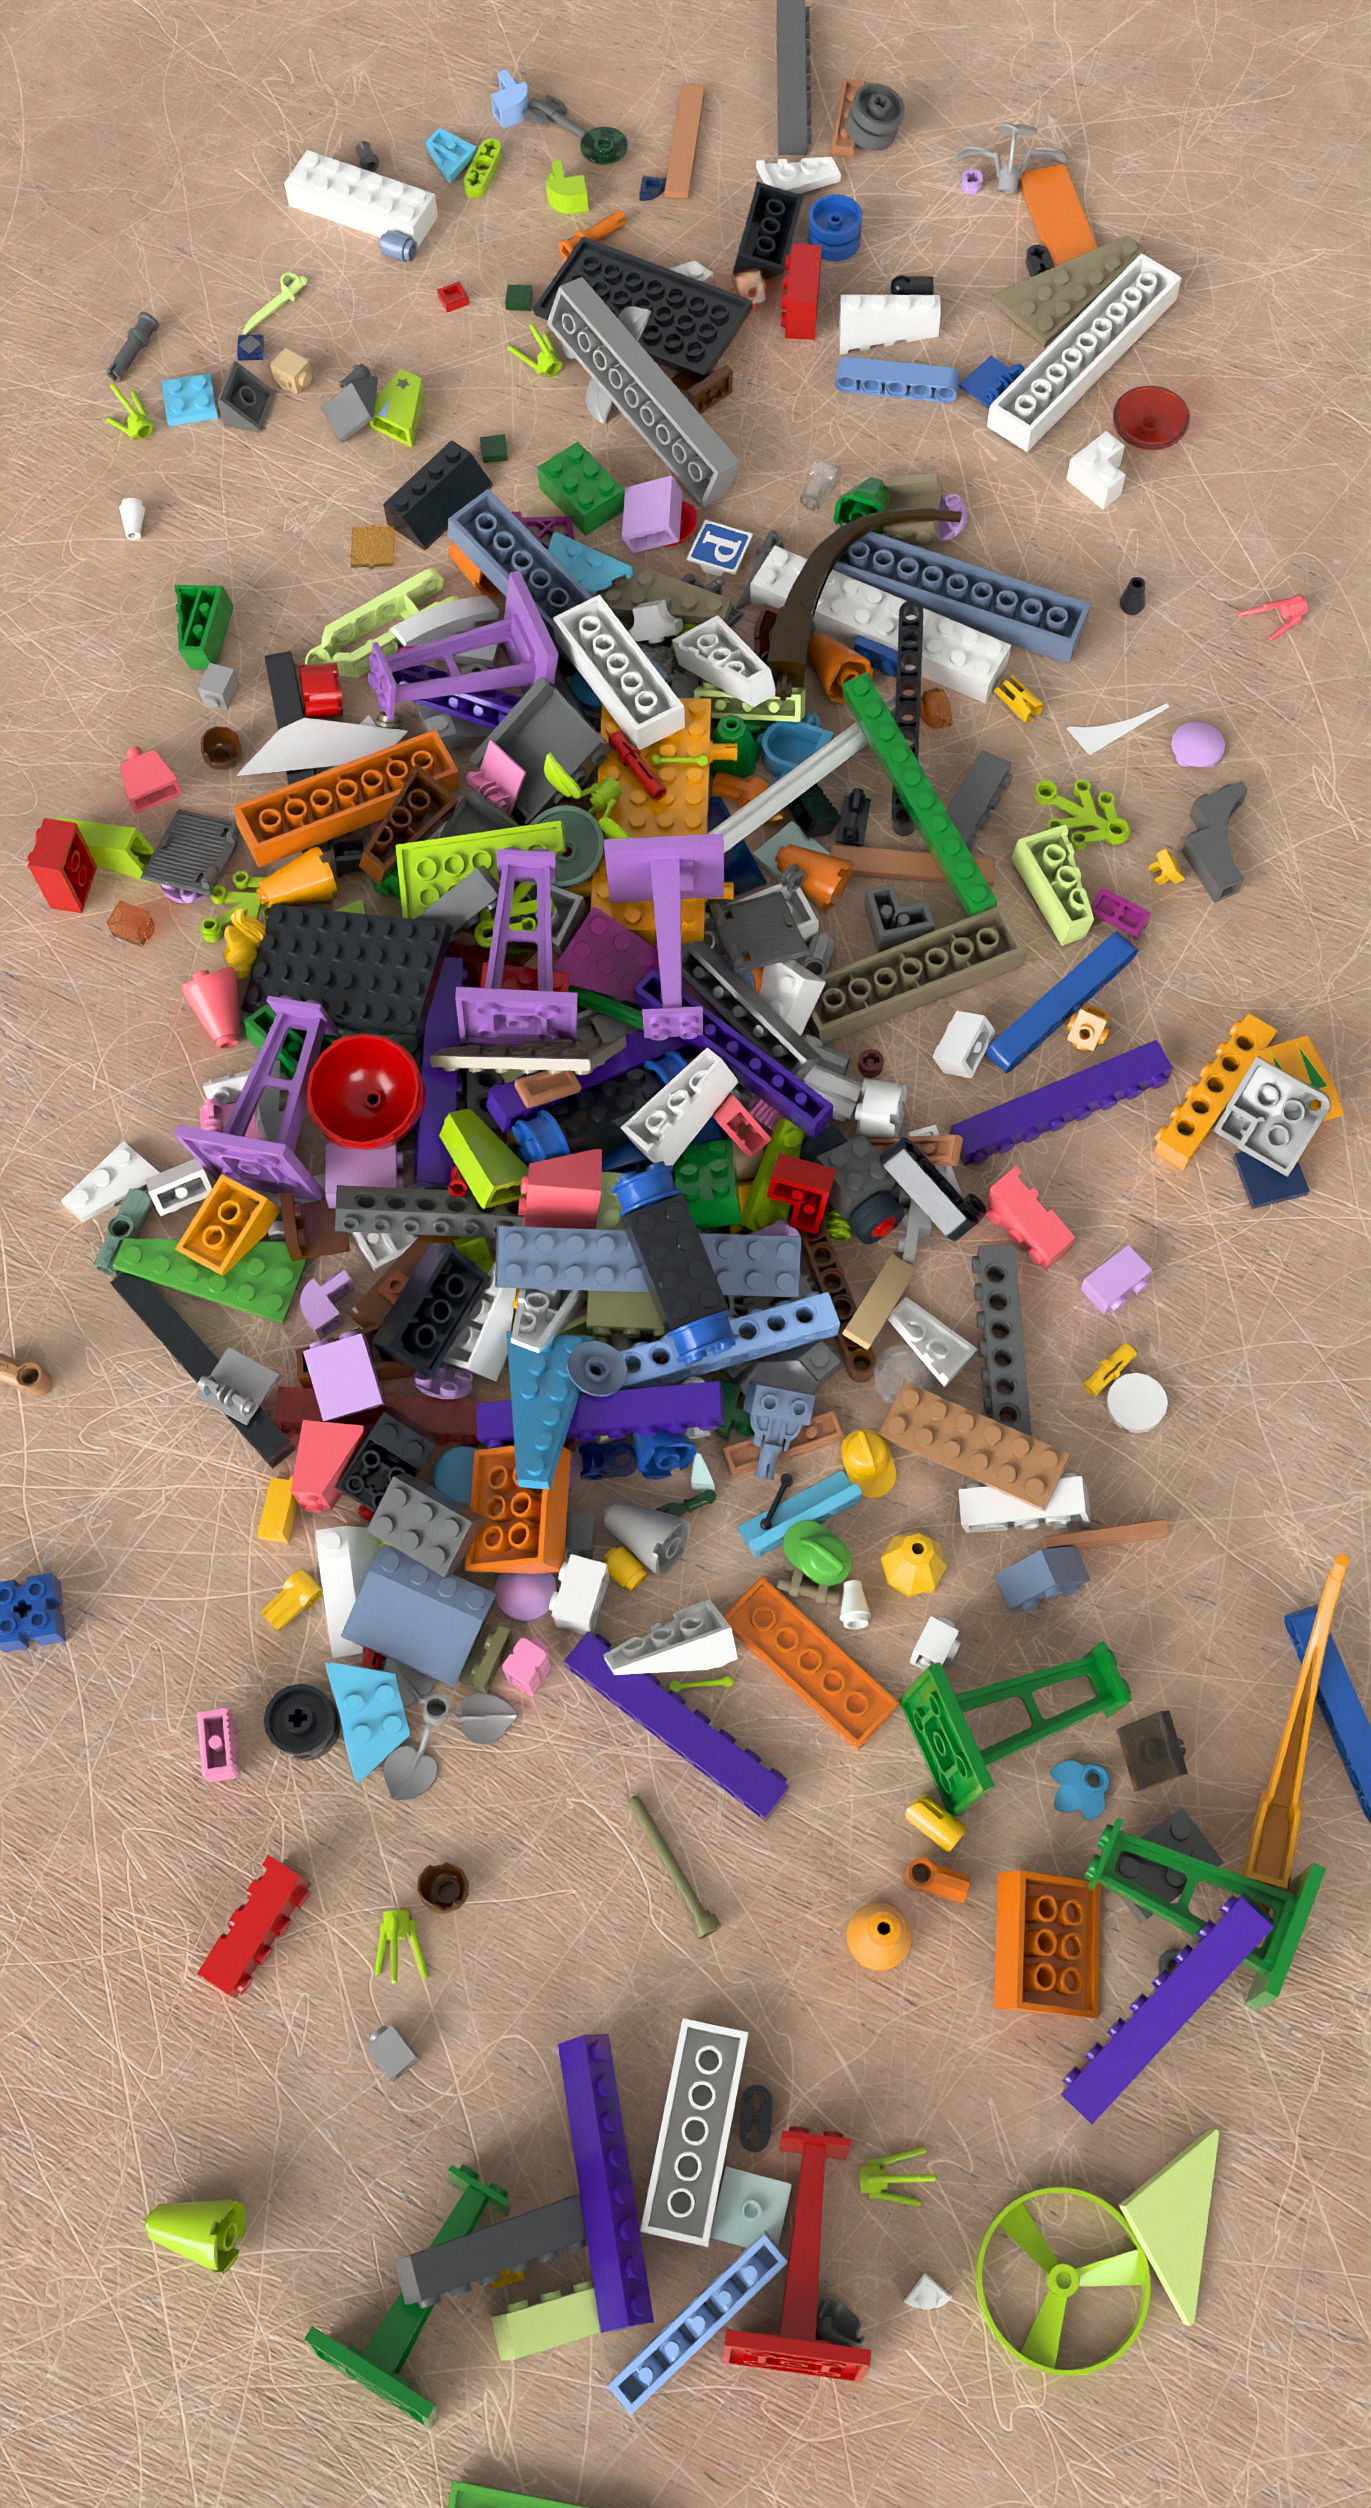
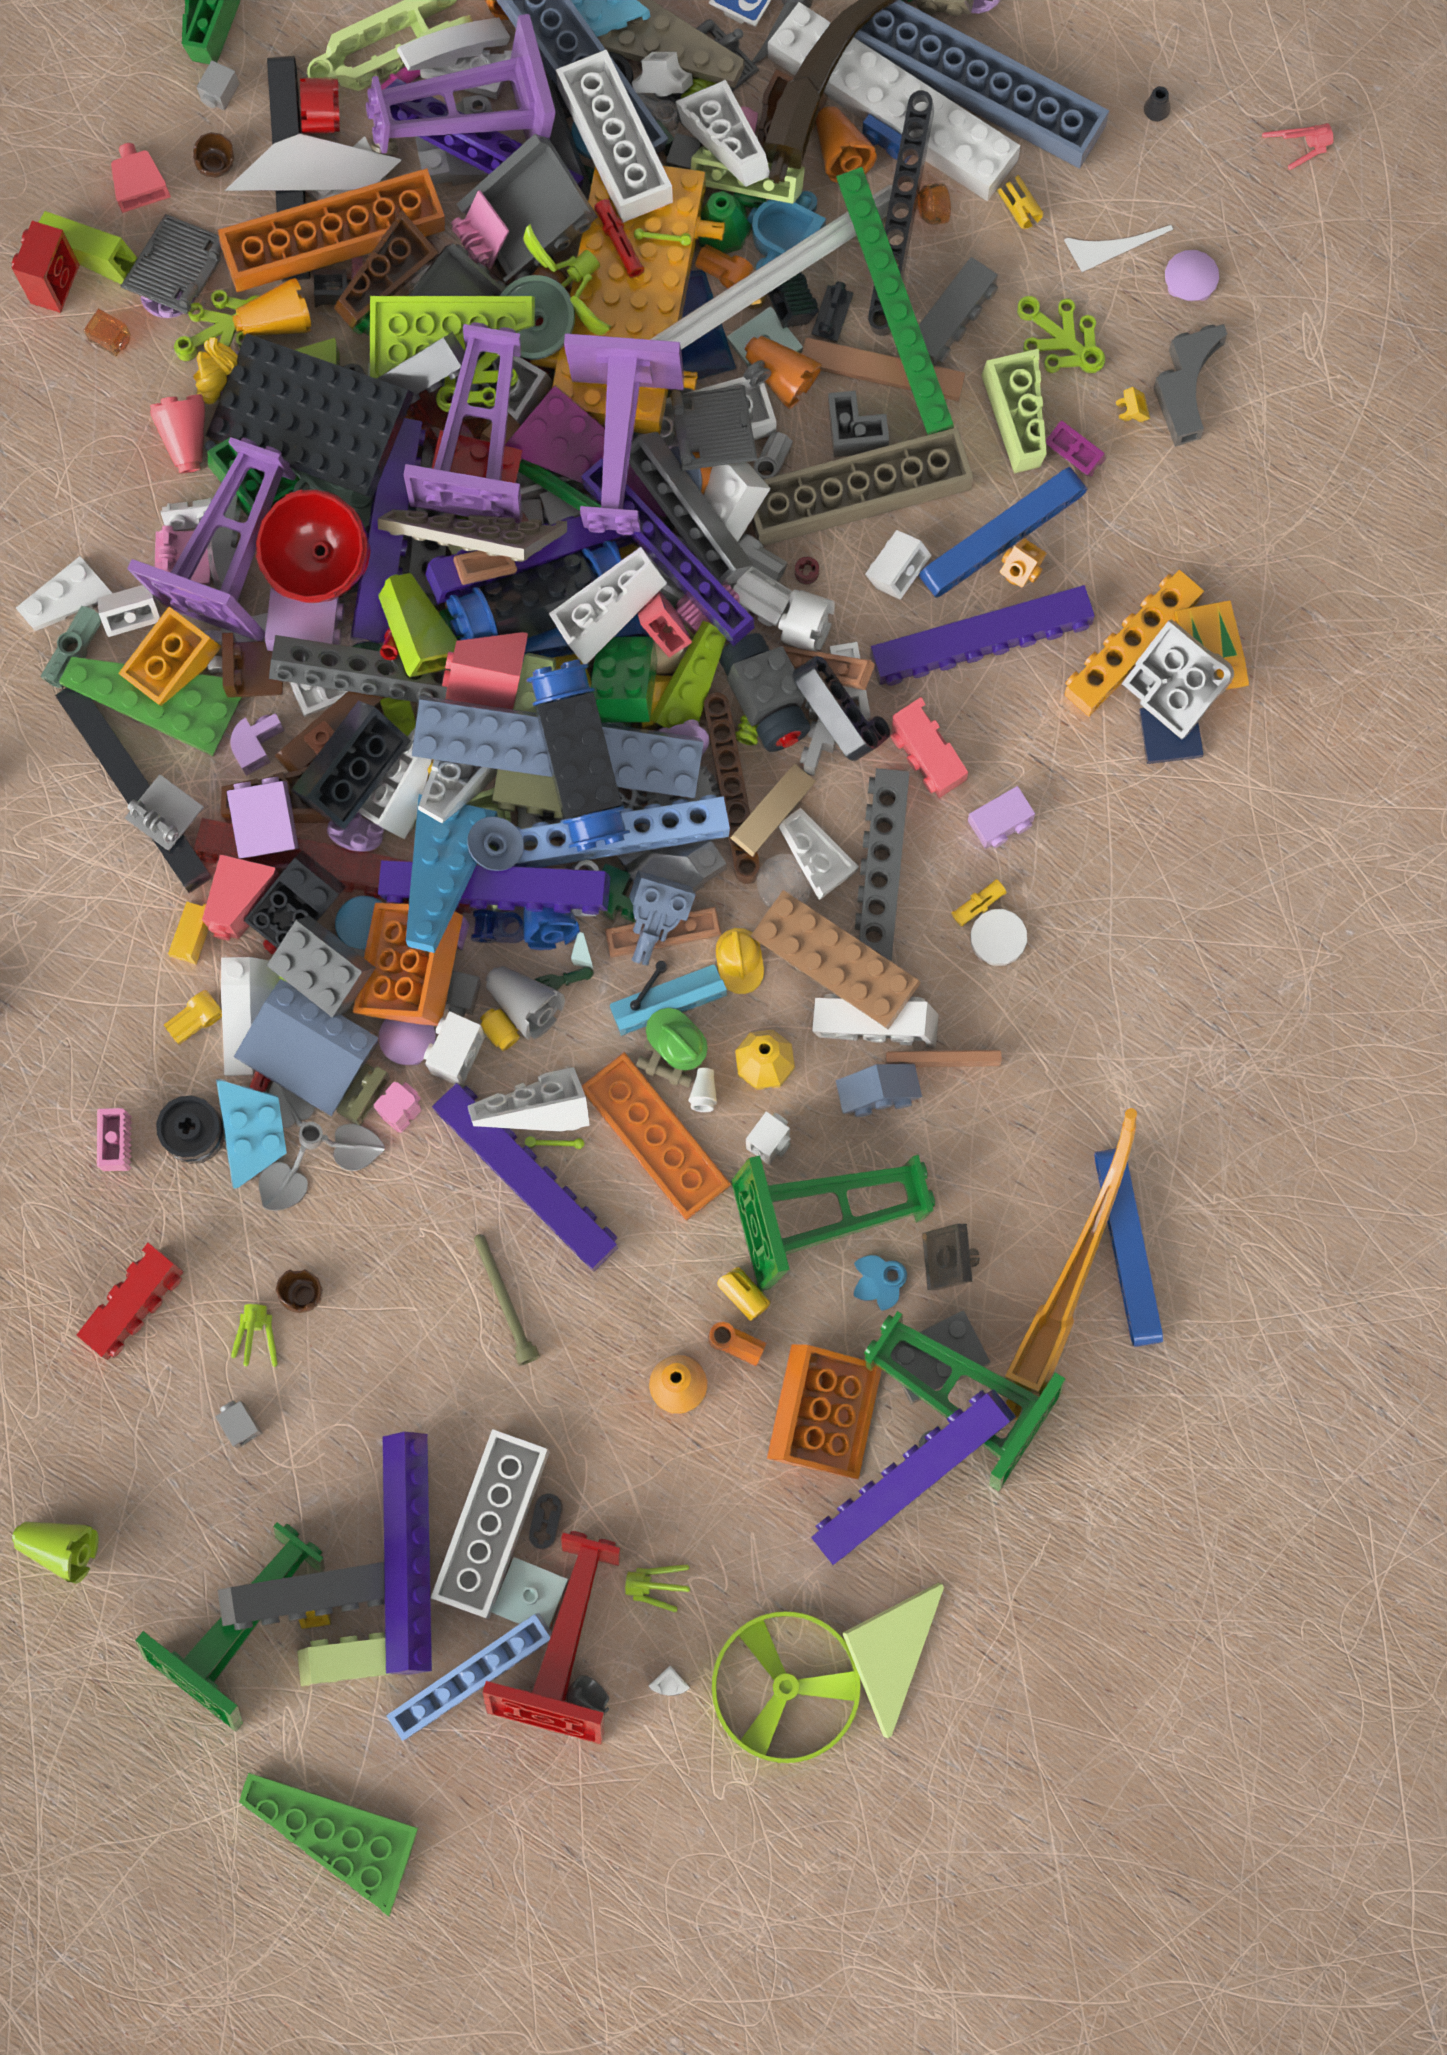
camera: 10 degrees right, 10 degrees up
(805, 1187) = (715, 693): red brick -> none

